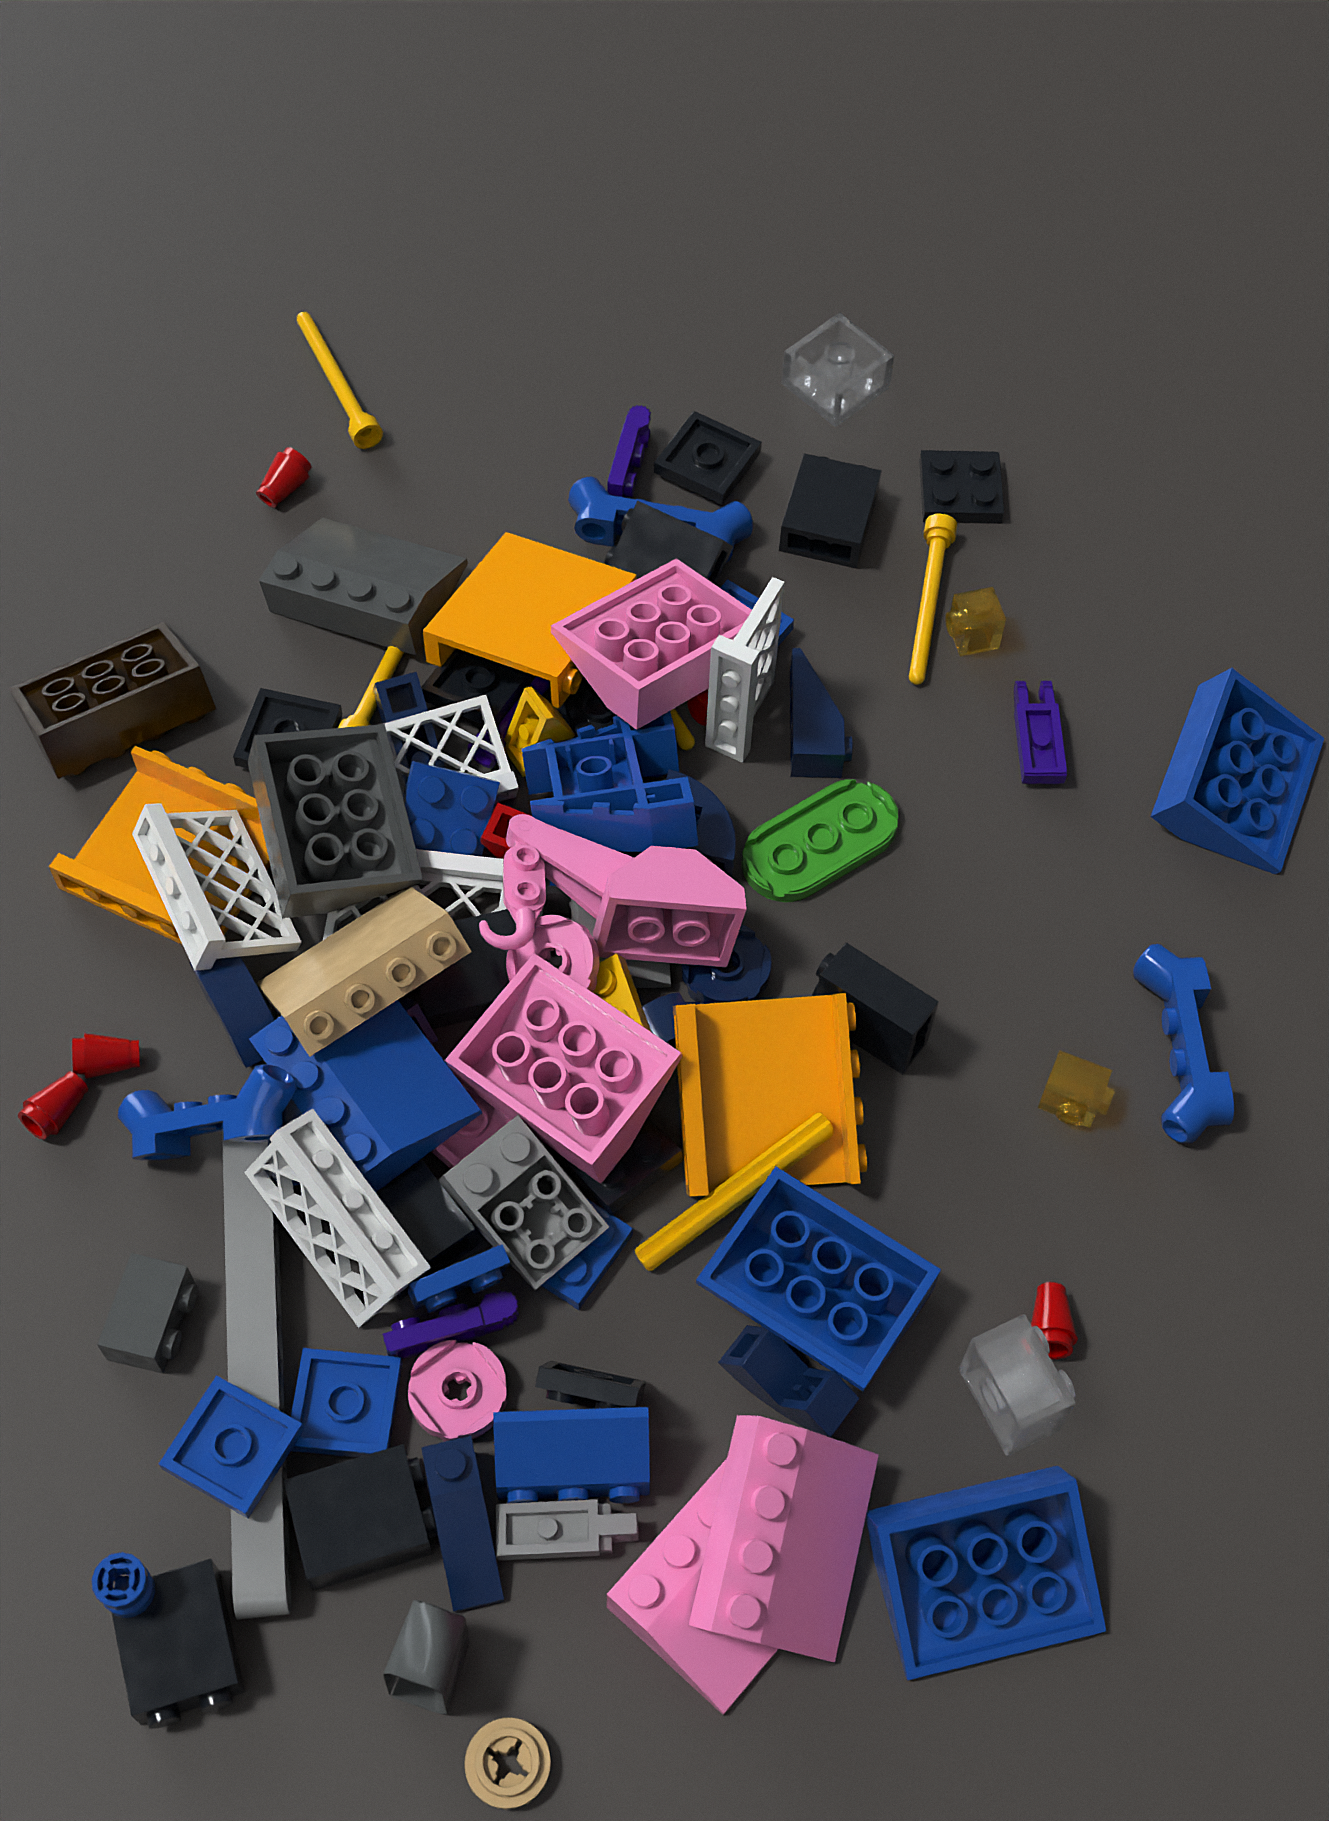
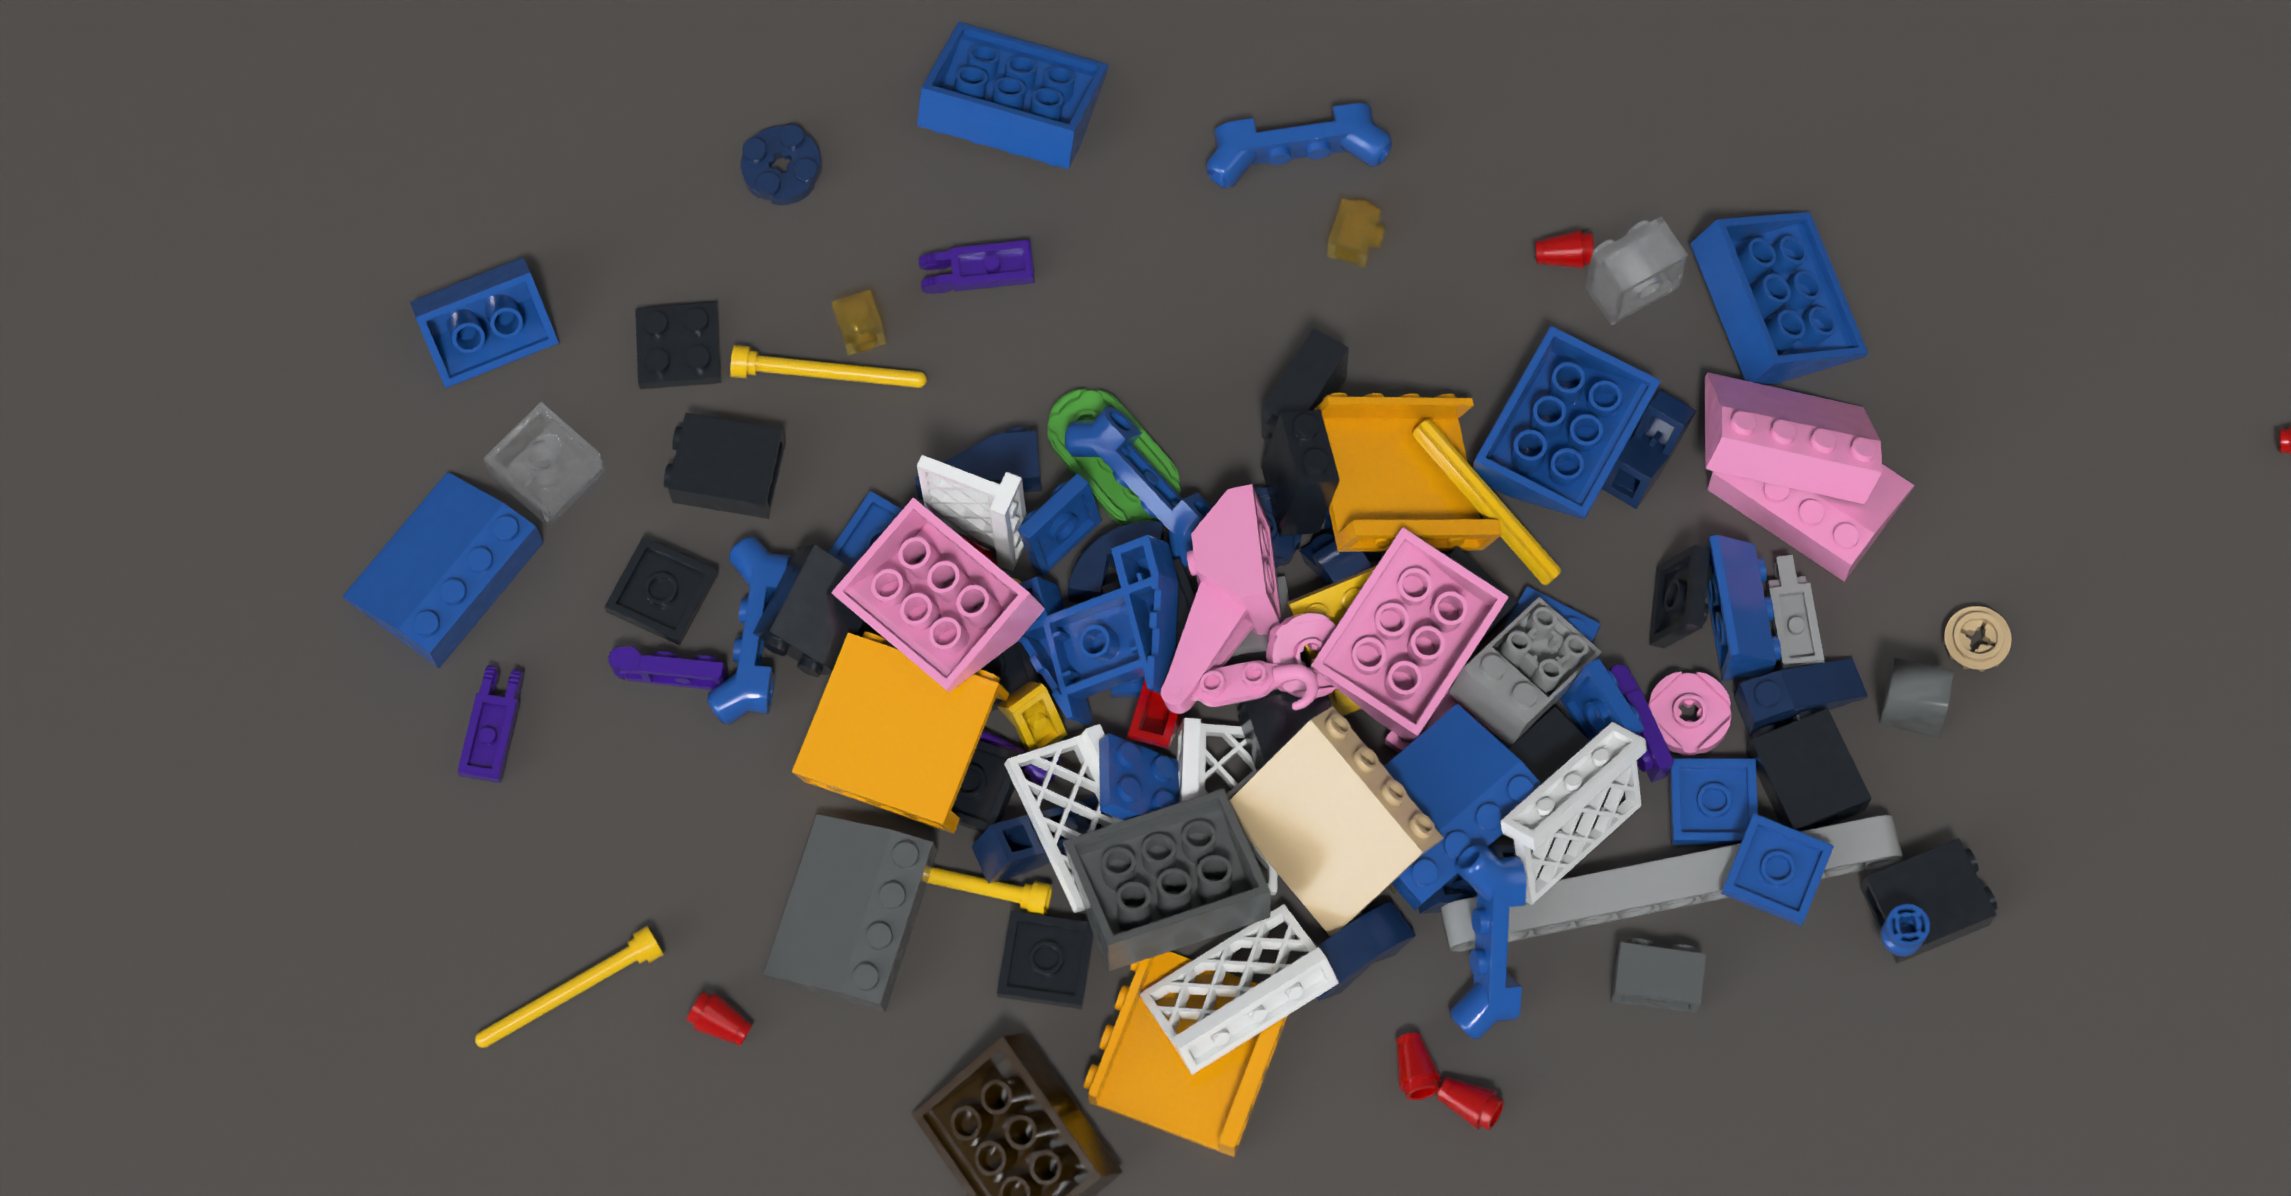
camera: 90 degrees left, 10 degrees up
(593, 332) = (491, 728): none -> dark purple hinge
(738, 305) = (444, 568): none -> blue slope
(738, 766) = (1059, 524): none -> blue plate
(770, 970) = (1300, 472): none -> black brick
(823, 818) = (1112, 440): none -> blue plate
(987, 338) = (484, 322): none -> blue slope
(1159, 558) = (785, 143): none -> dark blue plate

